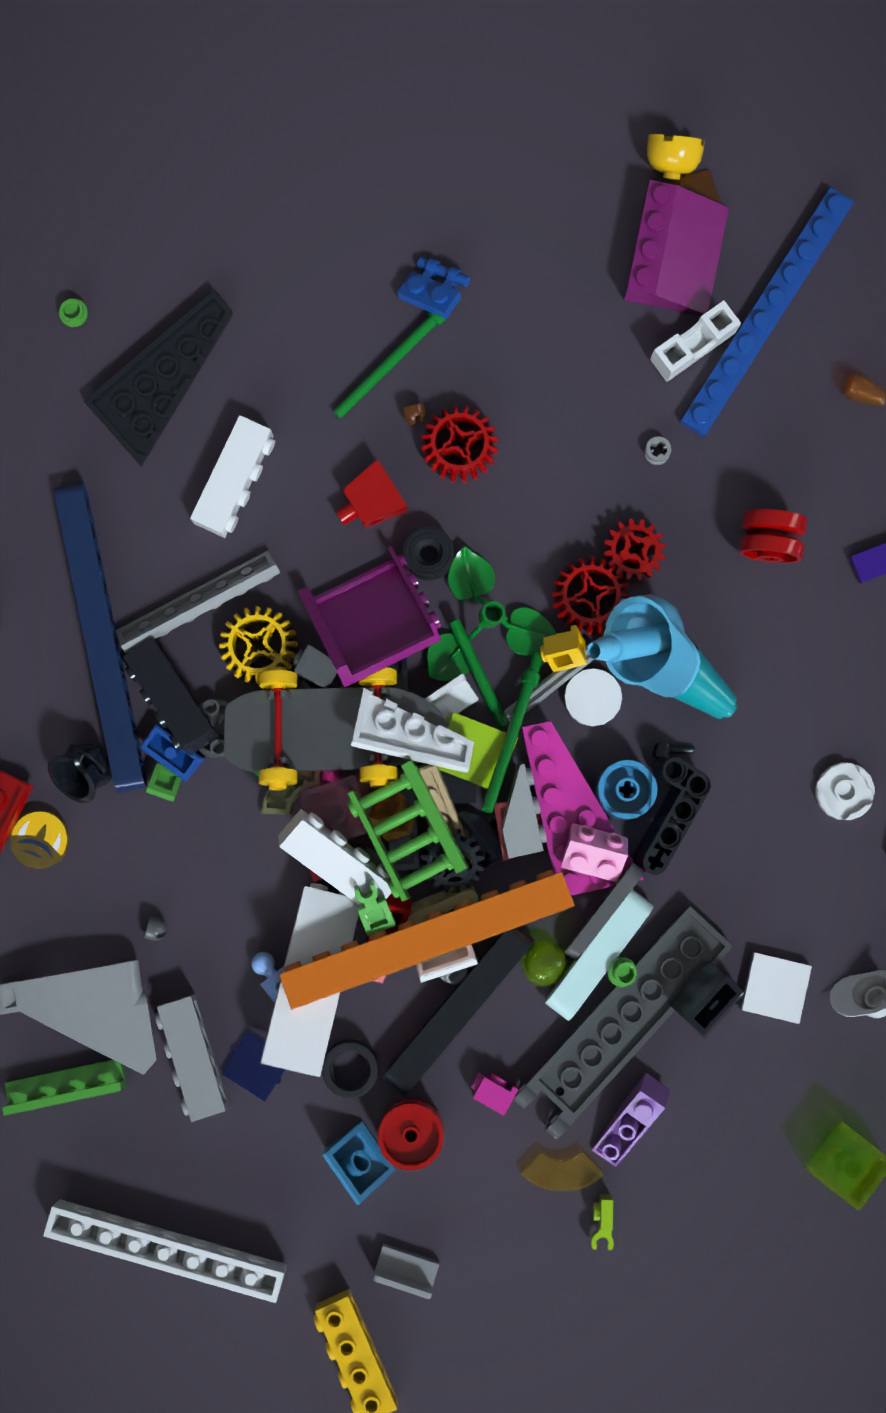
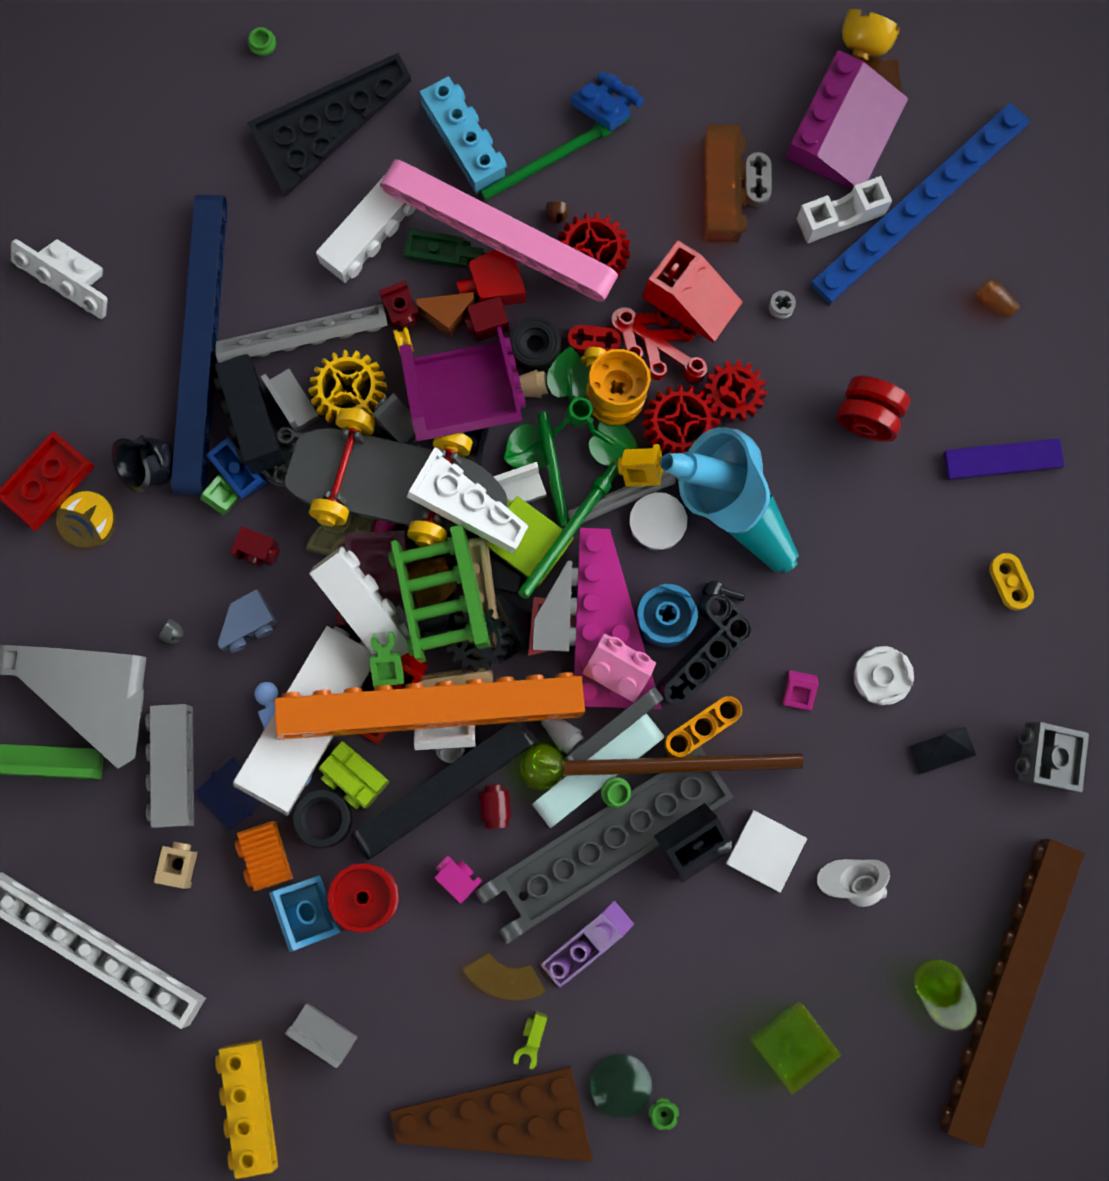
camera: 15 degrees right, 5 degrees down
(205, 669) = (291, 399): none -> light grey panel
(213, 826) = (255, 547): none -> dark red brick
(220, 1160) = (166, 870): none -> tan brick
(223, 898) = (245, 620): none -> sand blue slope
(278, 540) = (395, 296): none -> dark red brick
(298, 581) = (403, 338): none -> yellow bush
(300, 358) = (462, 134): none -> medium azure brick
(305, 1119) = (263, 856): none -> orange brick
(310, 481) = (439, 249): none -> dark green hinge
(333, 543) = (446, 311): none -> dark orange slope
(364, 452) = (499, 230): none -> bright pink beam
(368, 1020) = (353, 776): none -> lime brick
(374, 540) = (485, 318): none -> dark red brick
(437, 593) = (534, 384): none -> tan cone
(484, 526) = (593, 333): none -> red beam
(490, 553) = (591, 355): none -> yellow plate
(510, 1014) = (495, 806): none -> dark red brick
(518, 563) = (622, 374): none -> light orange wheel
(545, 520) = (656, 341): none -> red plant
(557, 929) = (563, 734): none -> light grey cone
(569, 463) = (692, 292): none -> slope
(570, 343) = (723, 183): none -> clear orange brick
(605, 1297) = (516, 1117): none -> reddish brown wing
(608, 328) = (764, 179): none -> light grey beam
(677, 929) = (682, 764): none -> reddish brown piece
(696, 1241) = (620, 1085): none -> clear green dish
(700, 881) = (715, 720): none -> light orange beam
(750, 1257) = (663, 1122): none -> bright green plate
(769, 825) = (800, 690): none -> dark pink slope

